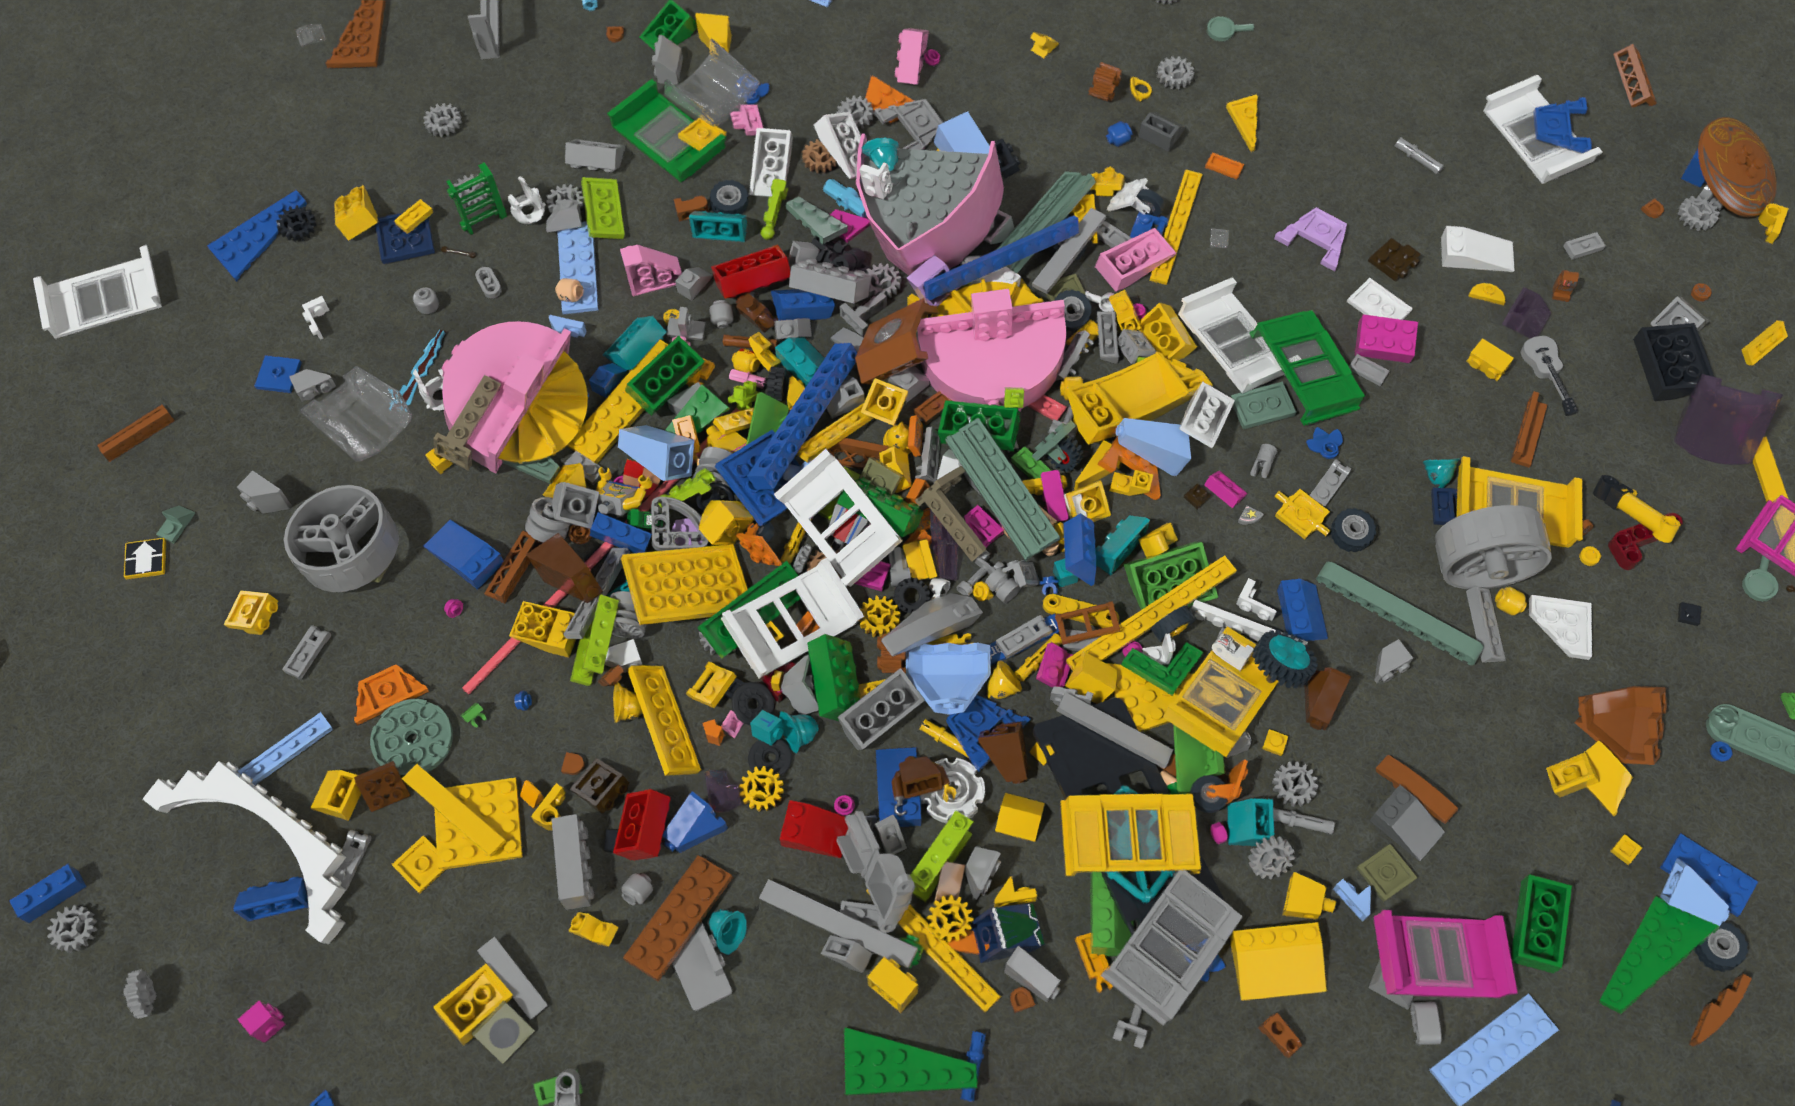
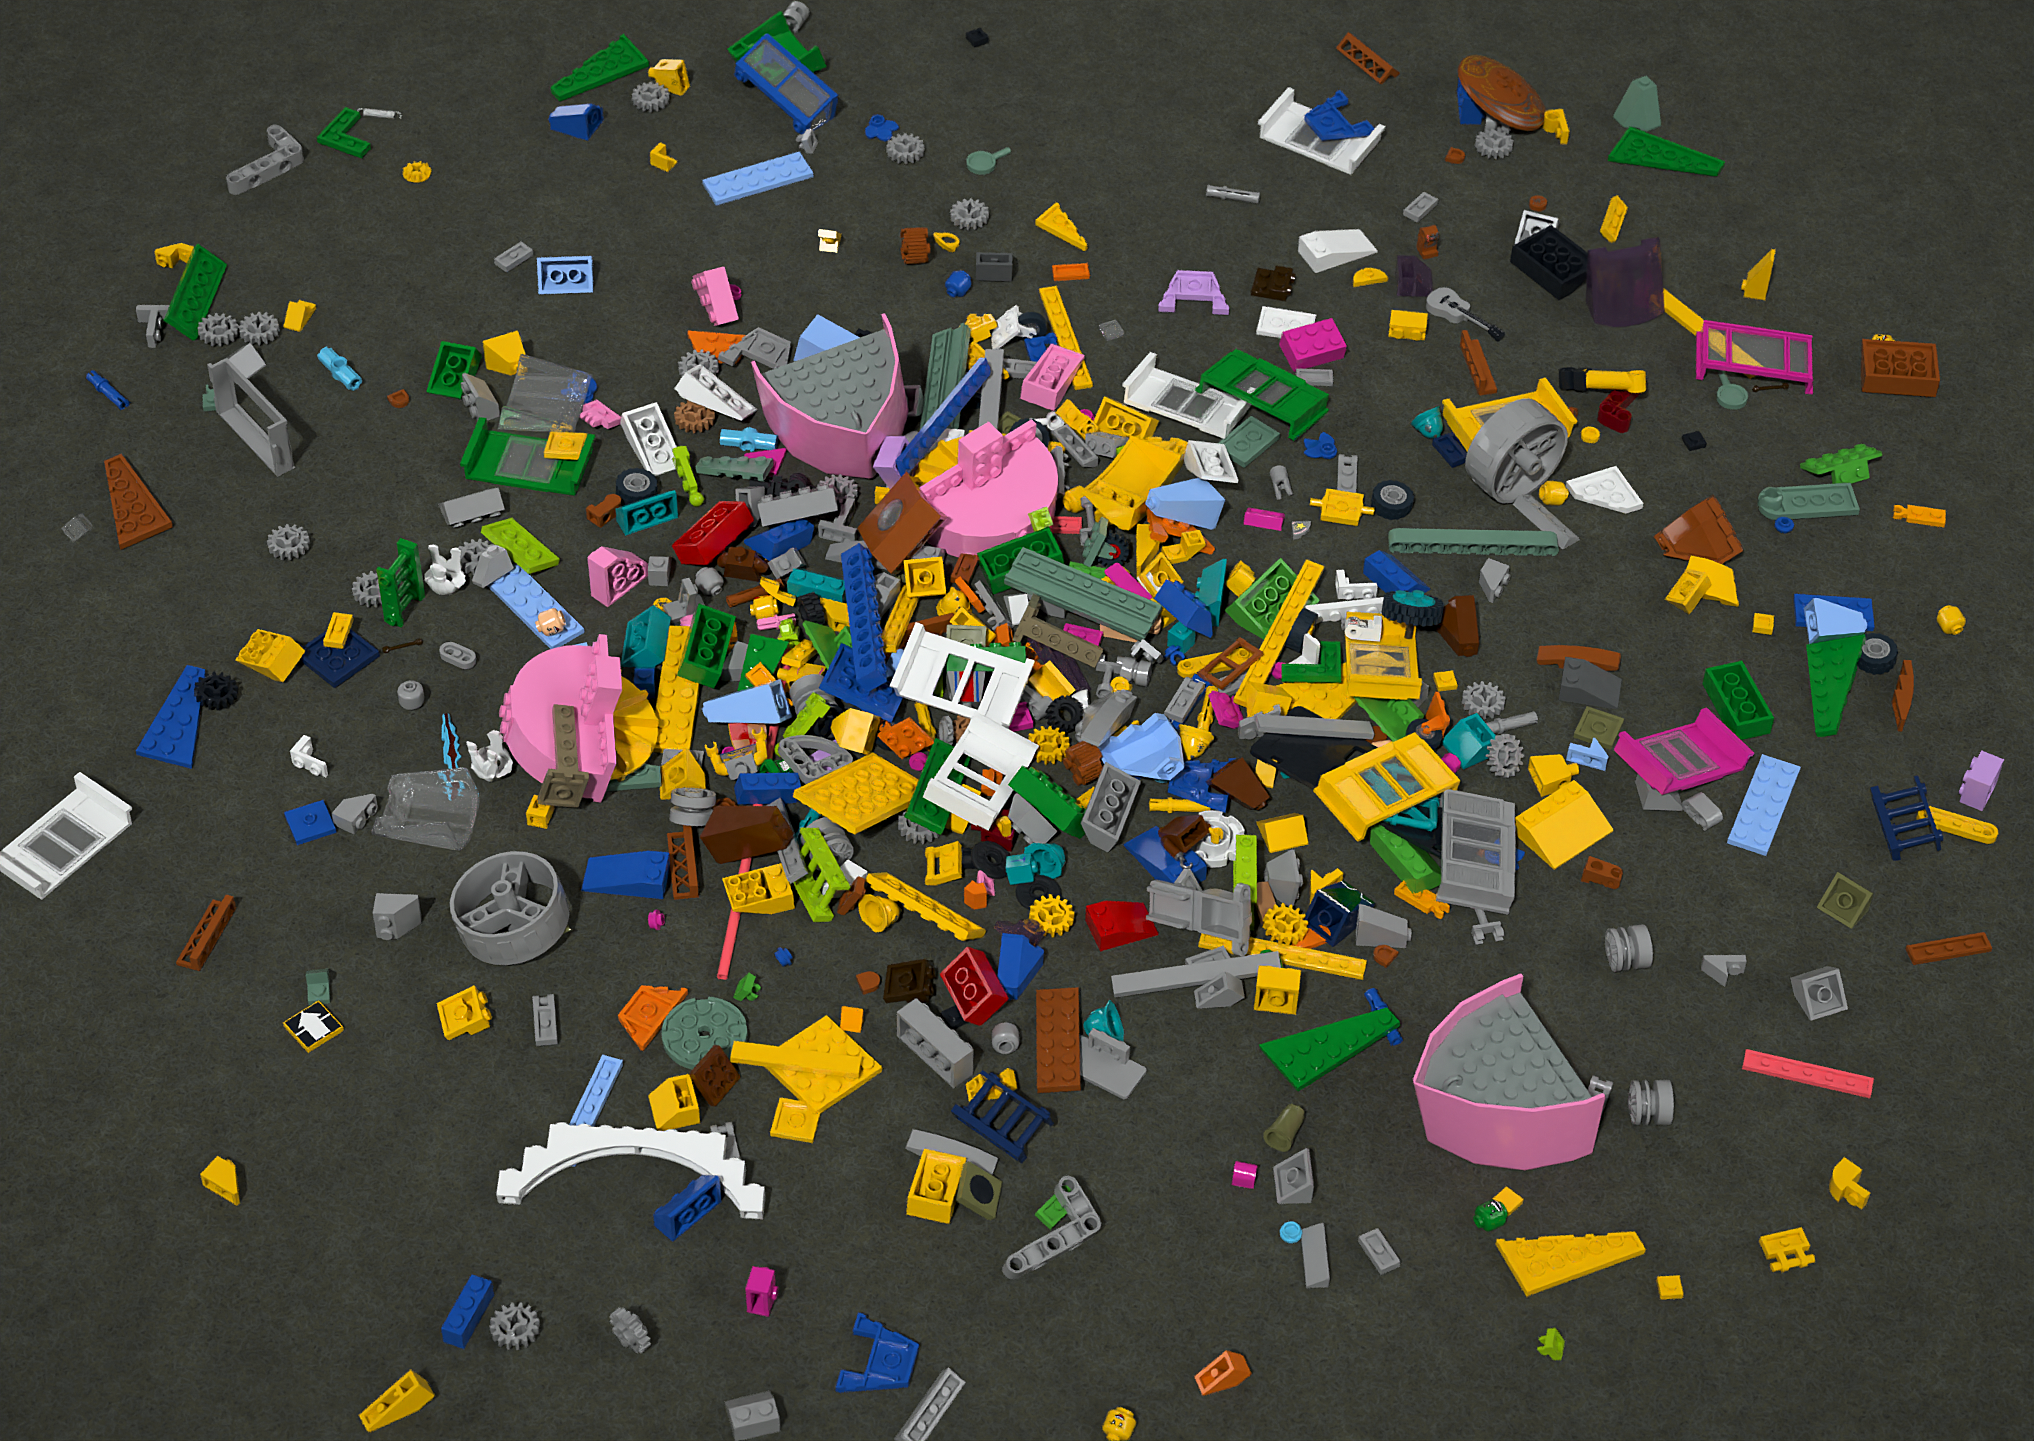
camera: 35 degrees left, 15 degrees down
(547, 807) = (881, 1024): yellow plate -> none
(554, 968) = (999, 1137): none -> dark blue fence
(574, 504) = (710, 777): light grey slope -> none
(762, 571) = (917, 761): none -> dark pink plate
(844, 799) = (1133, 890): dark pink plate -> none
(876, 181) = (799, 390): white bracket -> none
(882, 151) = (784, 368): teal piece -> none
(1197, 496) = (1245, 534): dark brown tile -> none

